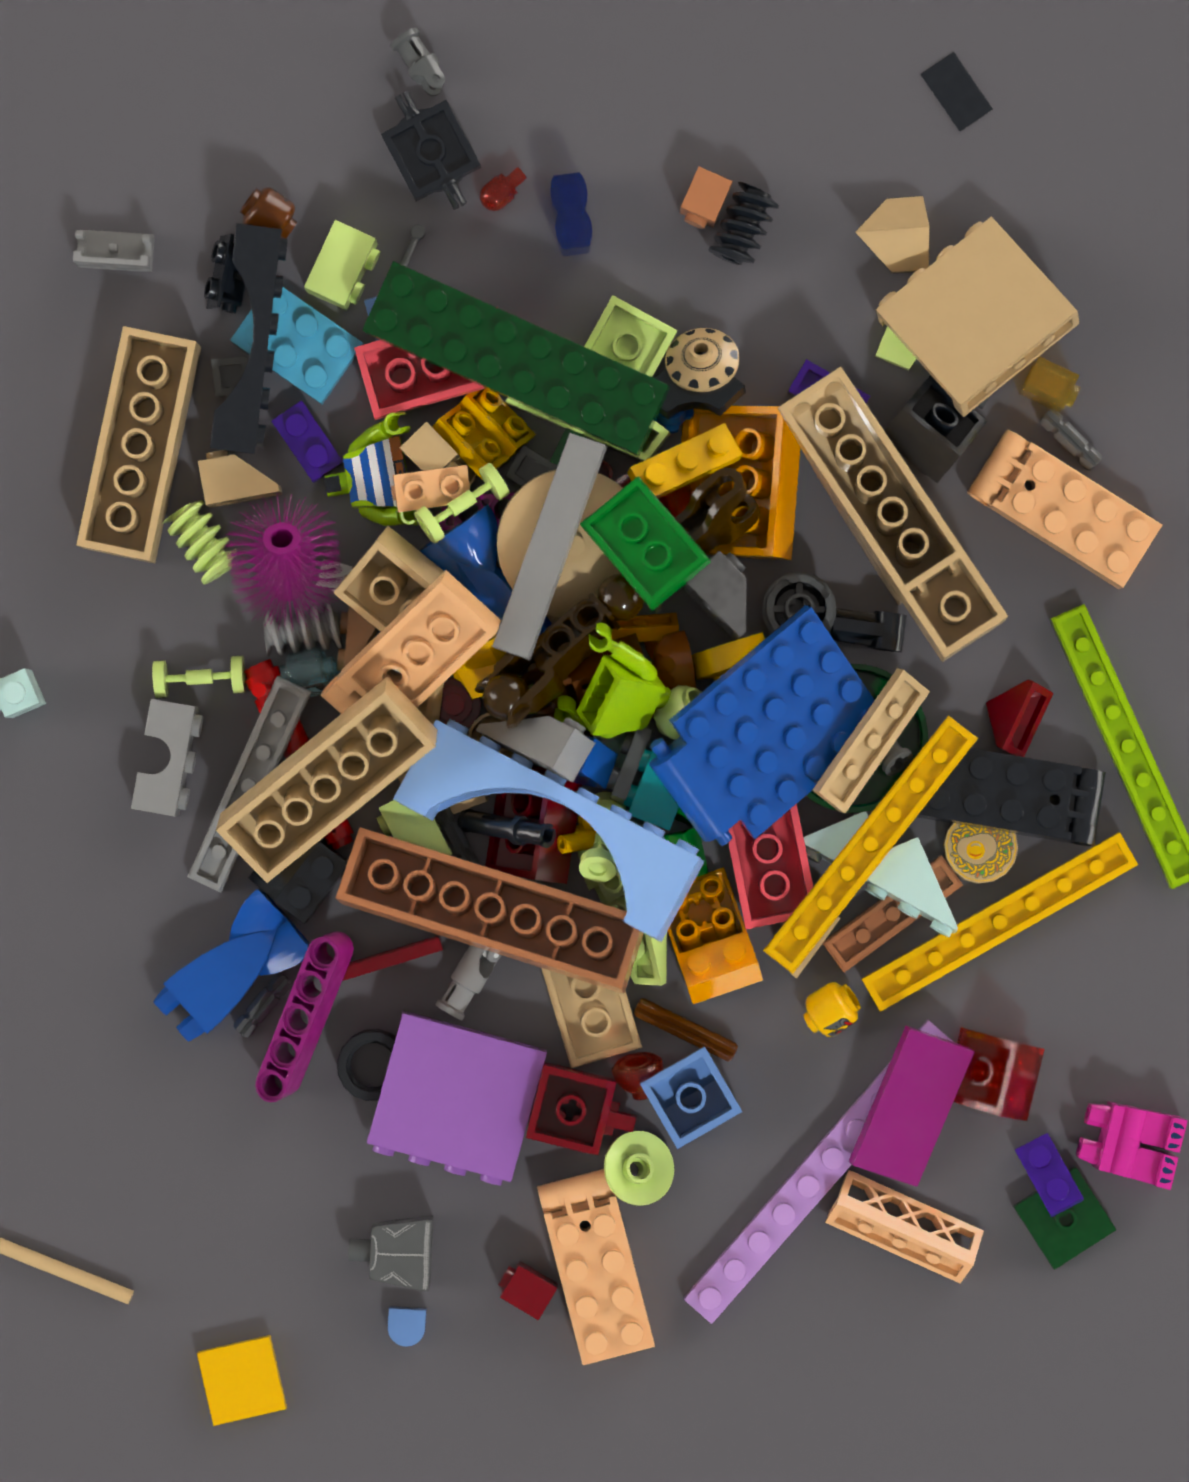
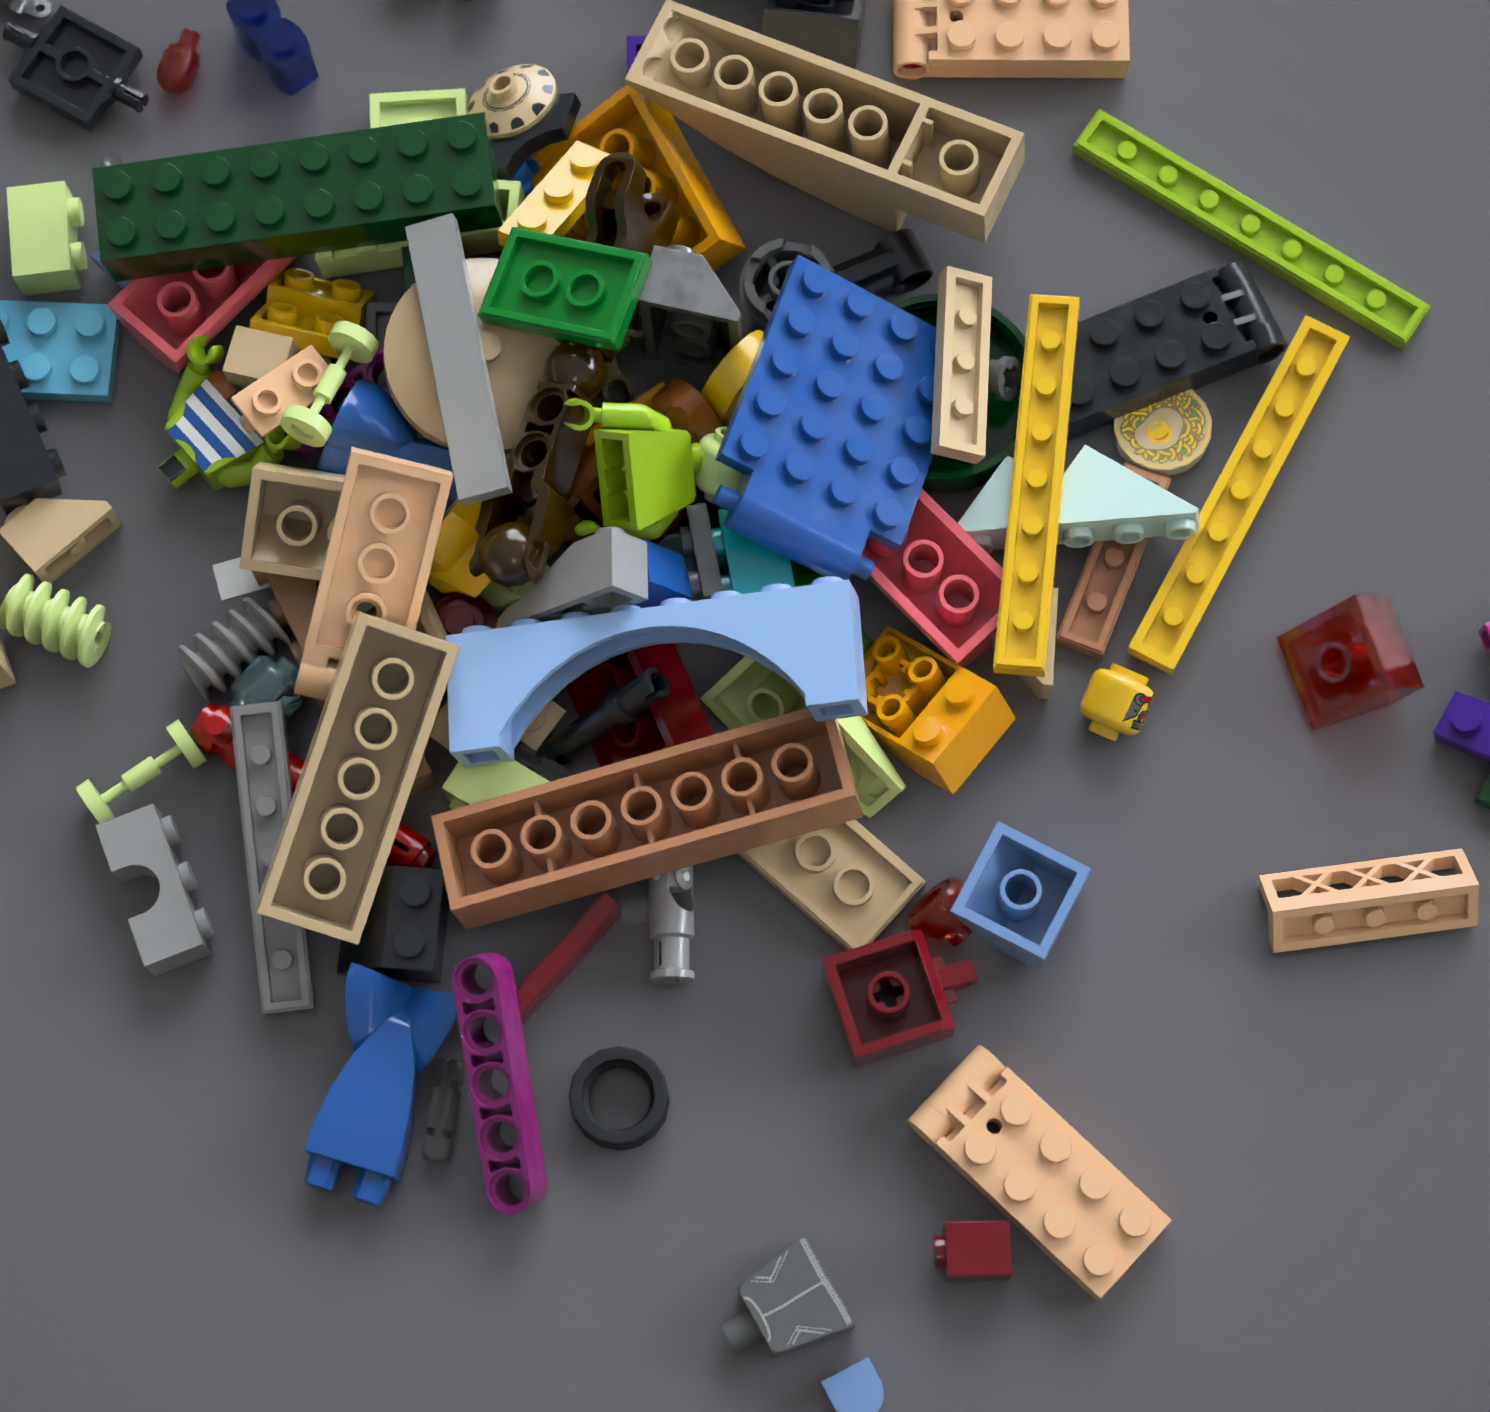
camera: 25 degrees left, 15 degrees down
(284, 561) = (162, 570): magenta piece -> none
(307, 441) = (117, 447): dark purple plate -> none
(456, 1098) = (744, 1072): medium lavender panel -> none
(580, 840) = (703, 678): yellow arm -> none
(598, 862) = (736, 681): yellowish green wheel -> none
(653, 1164) = (1018, 1005): yellowish green dish -> none
(685, 1029) = (957, 831): reddish brown axle -> none
(786, 1207) = (1226, 904): lavender plate -> none
(911, 1106) = (1281, 752): magenta tile -> none
(1017, 716) = (1106, 261): dark red slope -> none

